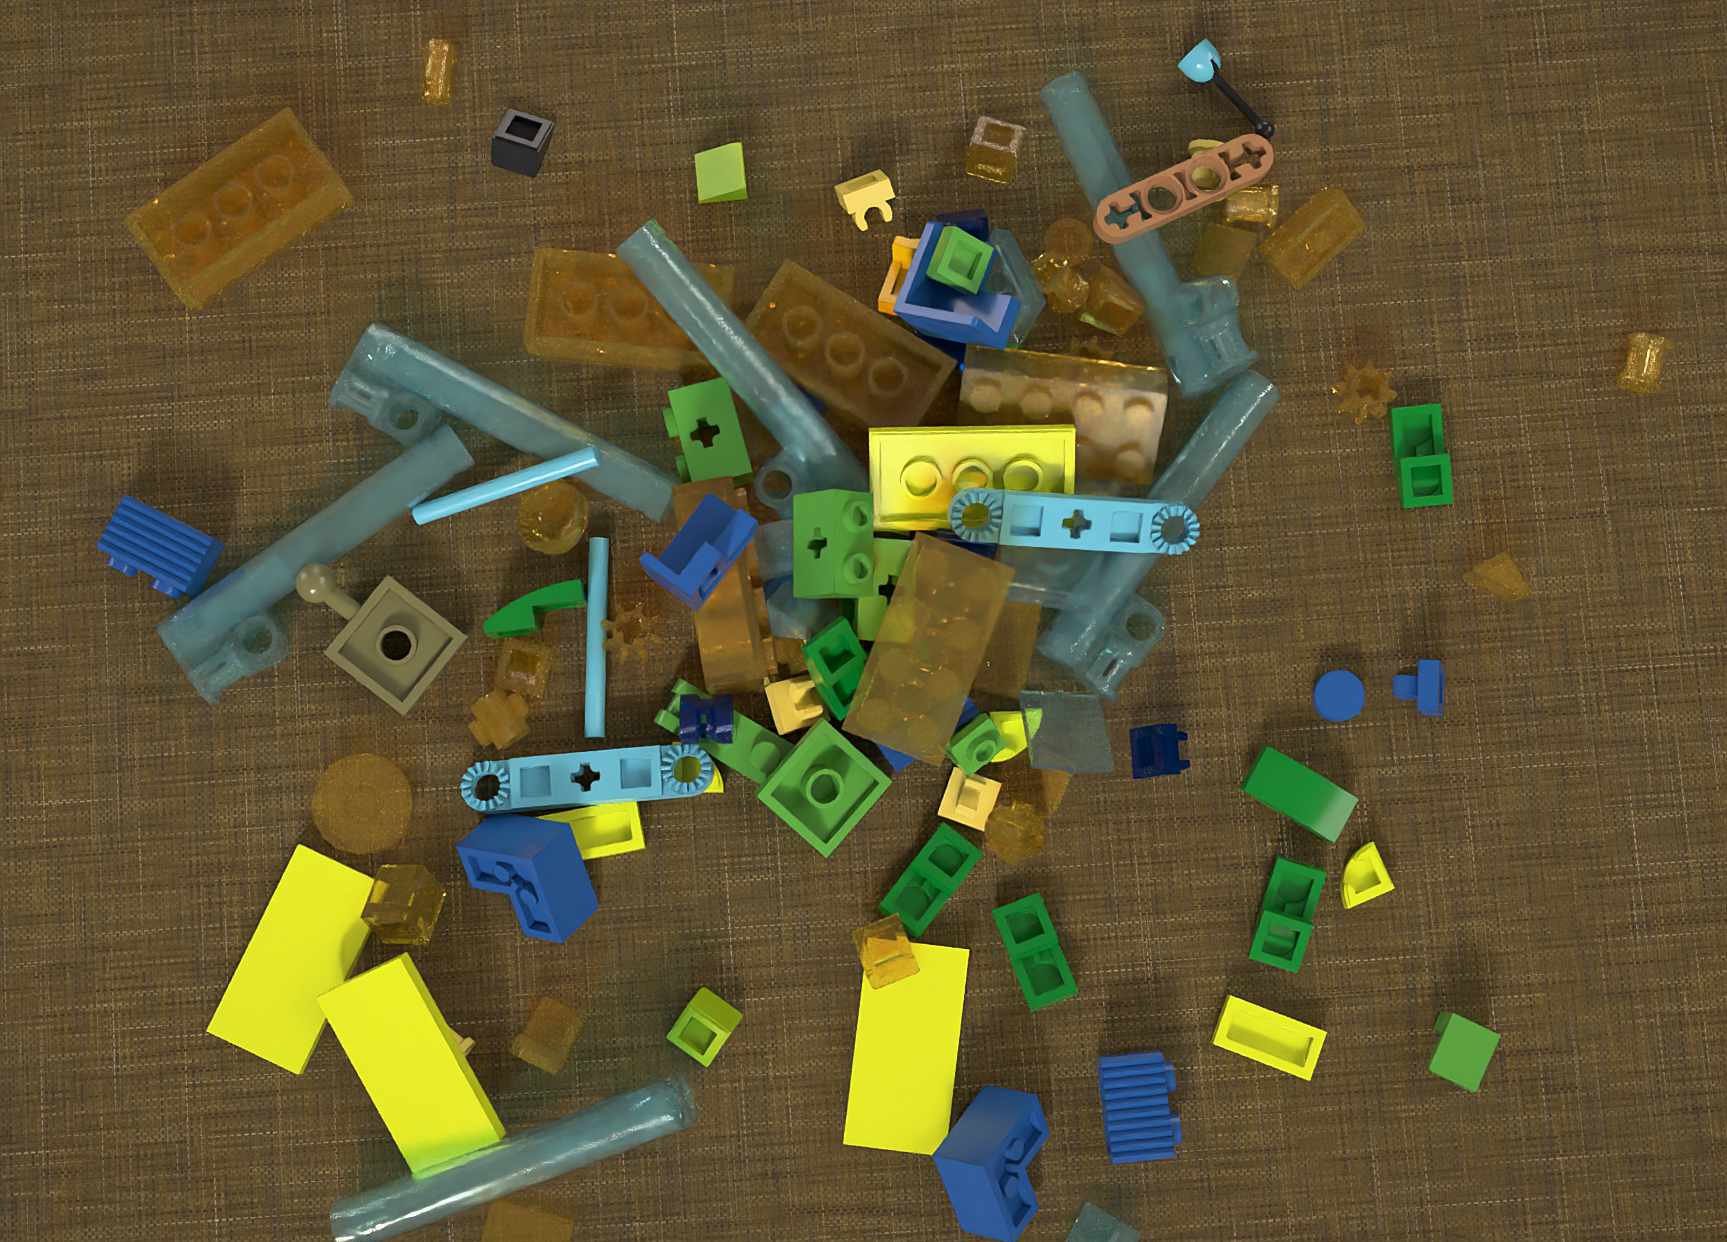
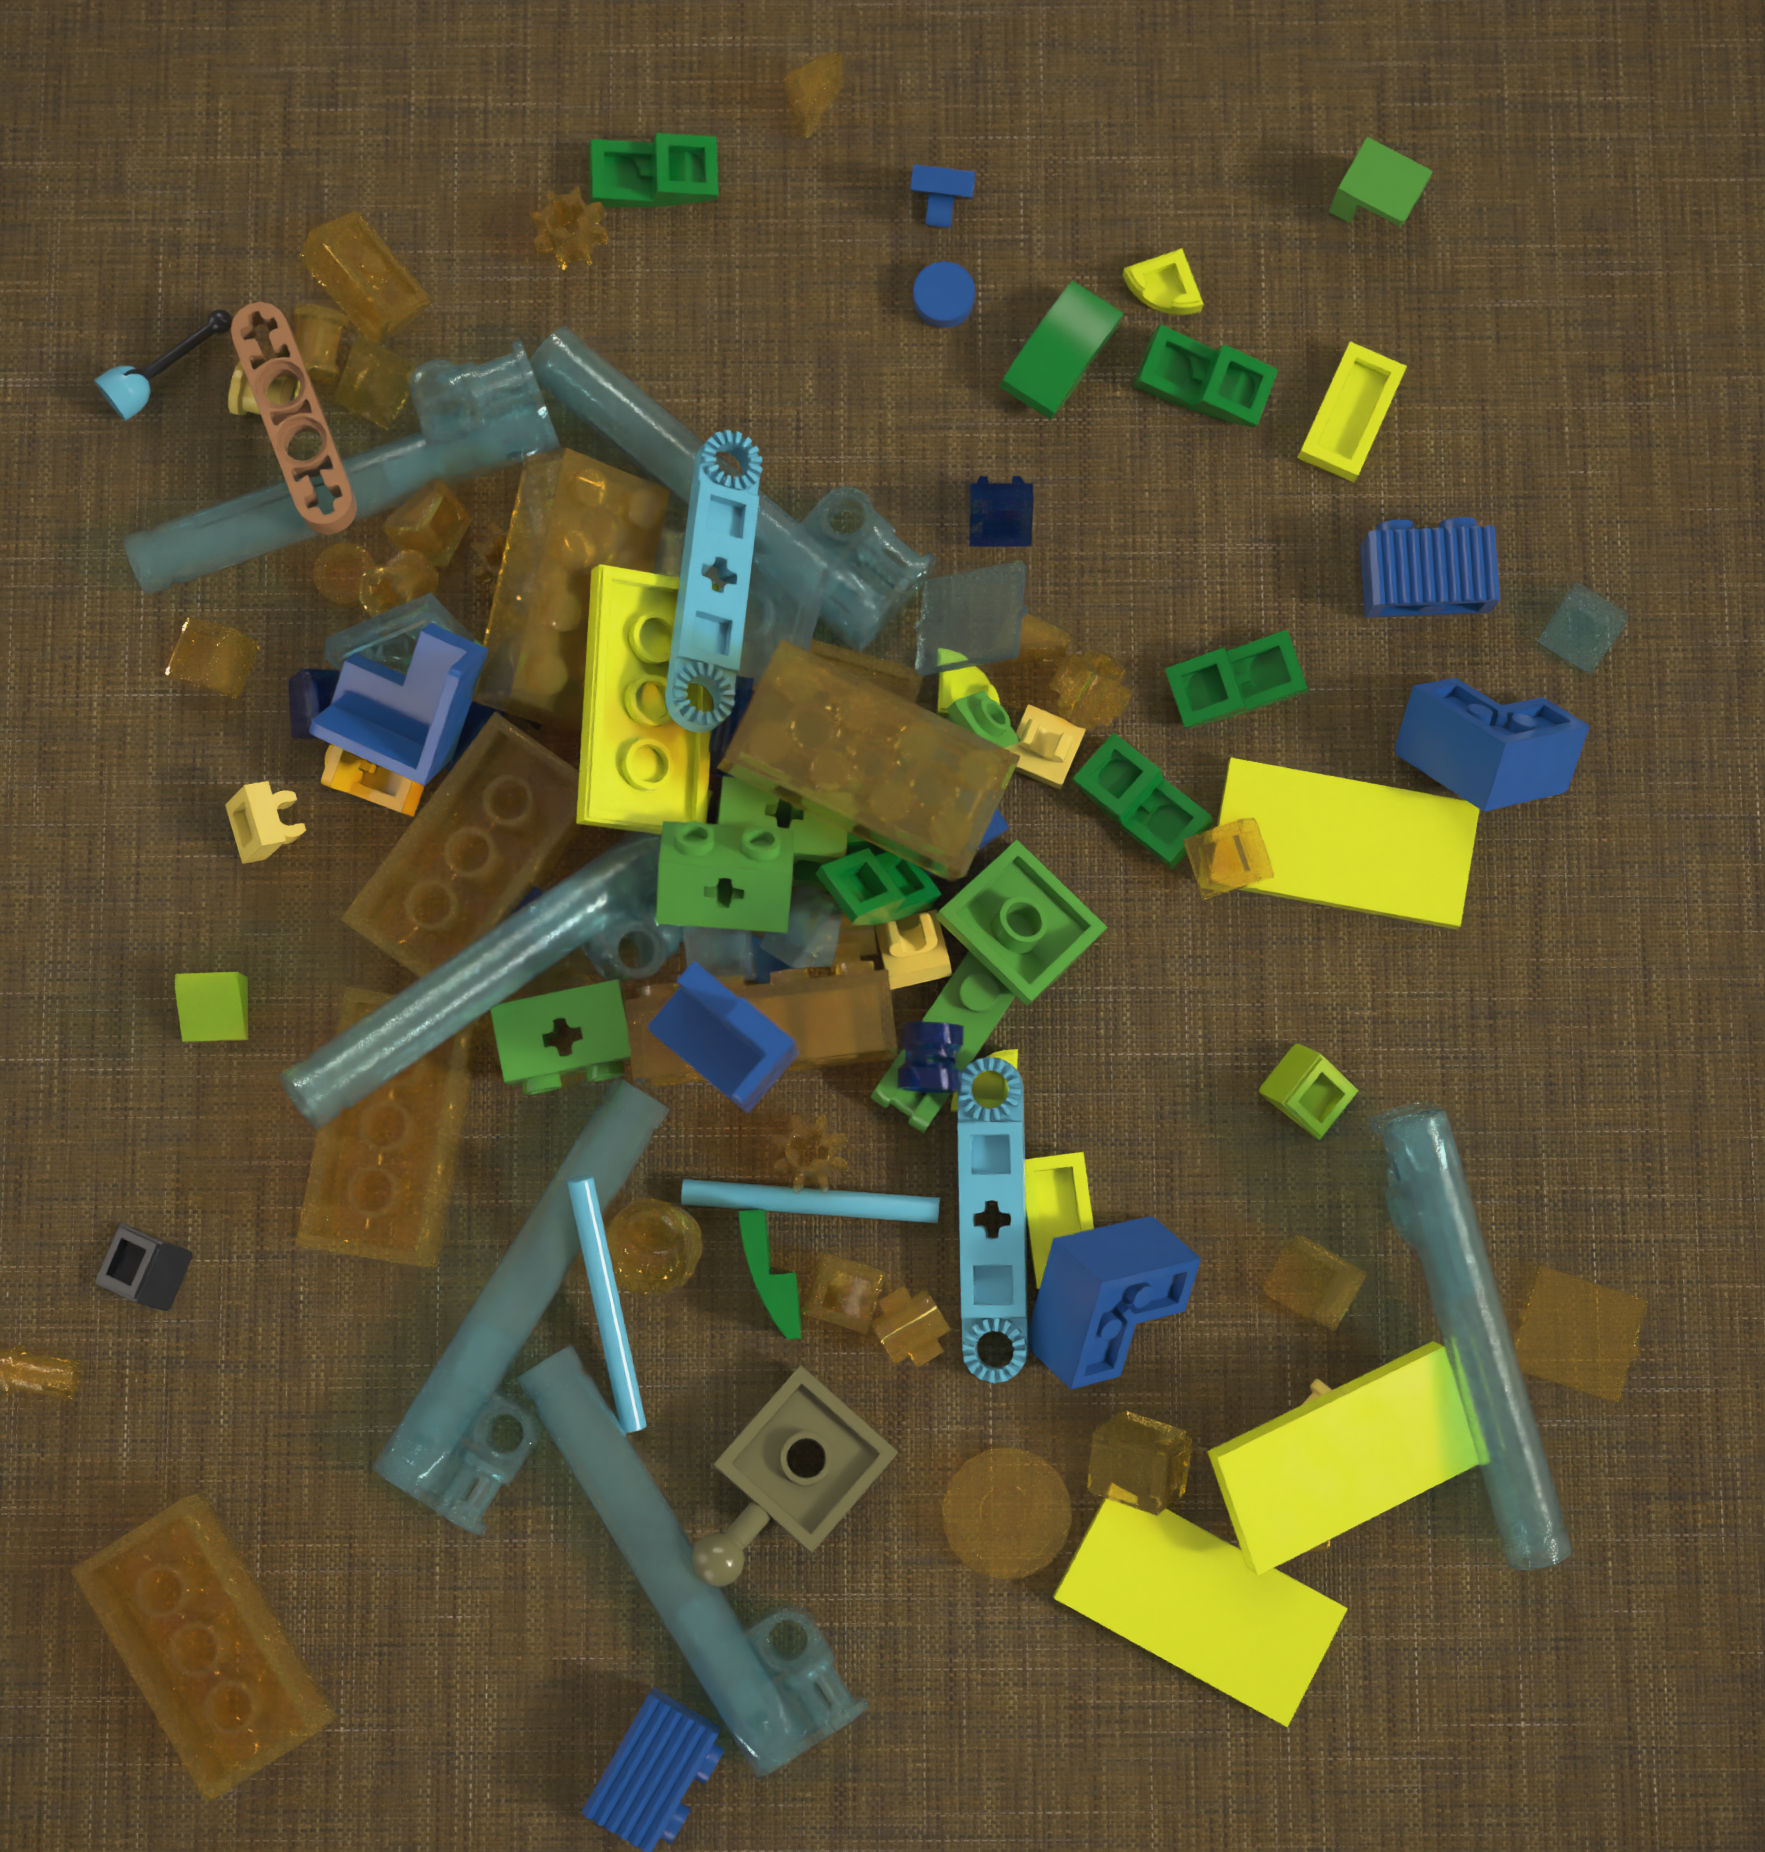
camera: 85 degrees left, 0 degrees up
(959, 261) = (368, 695): bright green tile -> none

